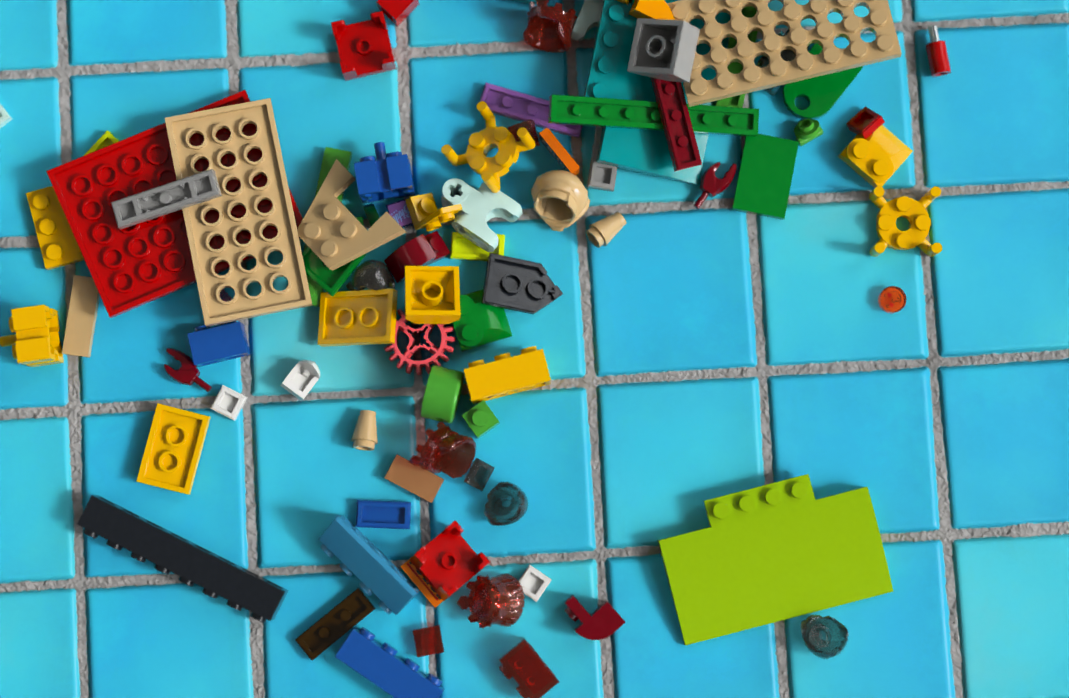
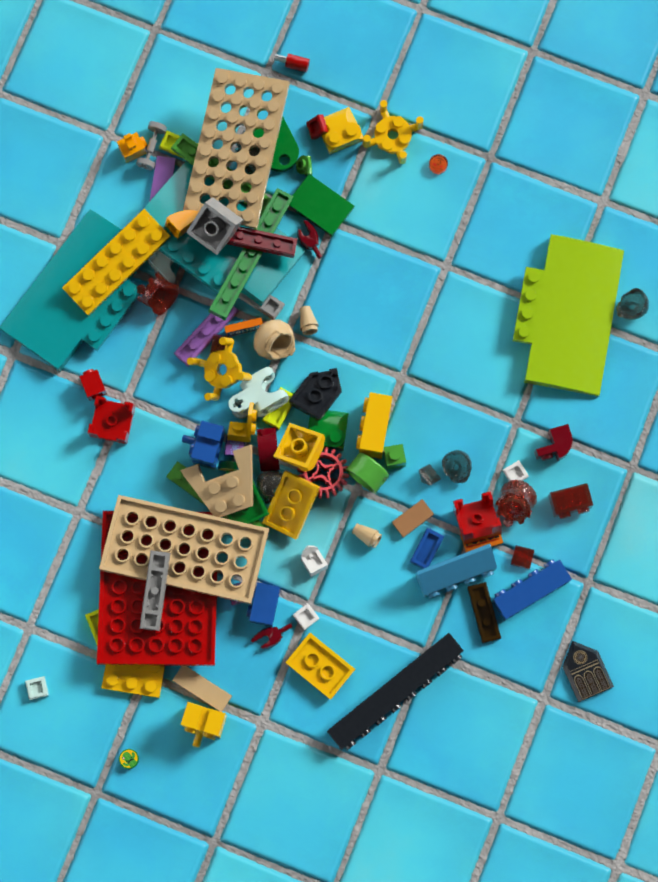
camera: 65 degrees left, 5 degrees down
(445, 452) = (406, 487): clear red hair -> none

